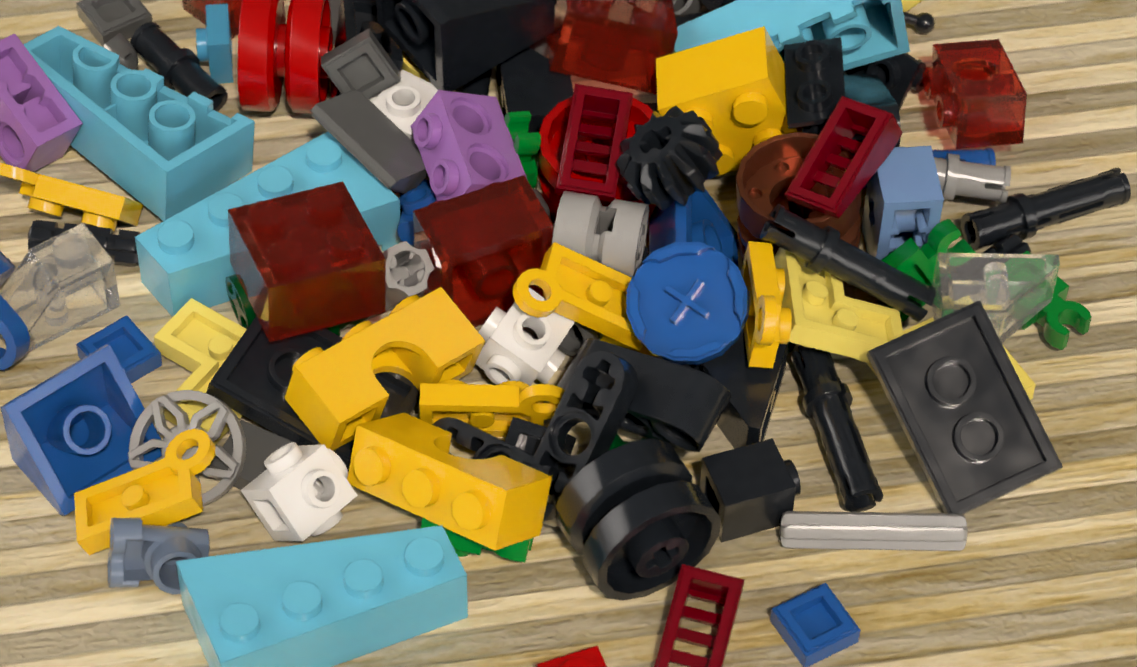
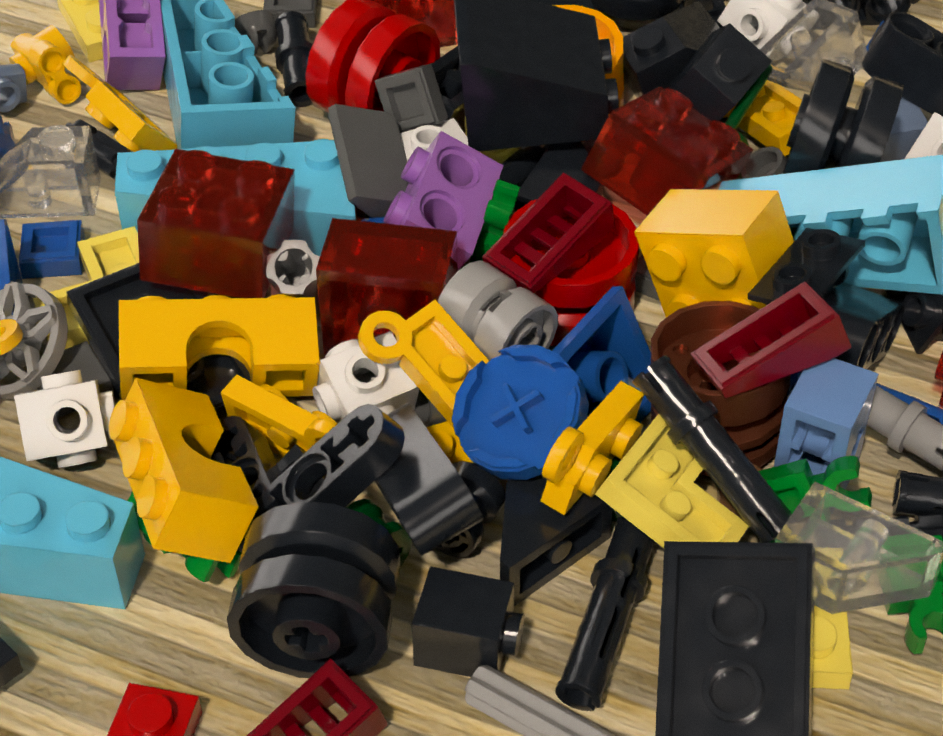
camera: 35 degrees right, 5 degrees down
(669, 158) = (597, 270): black gear -> none

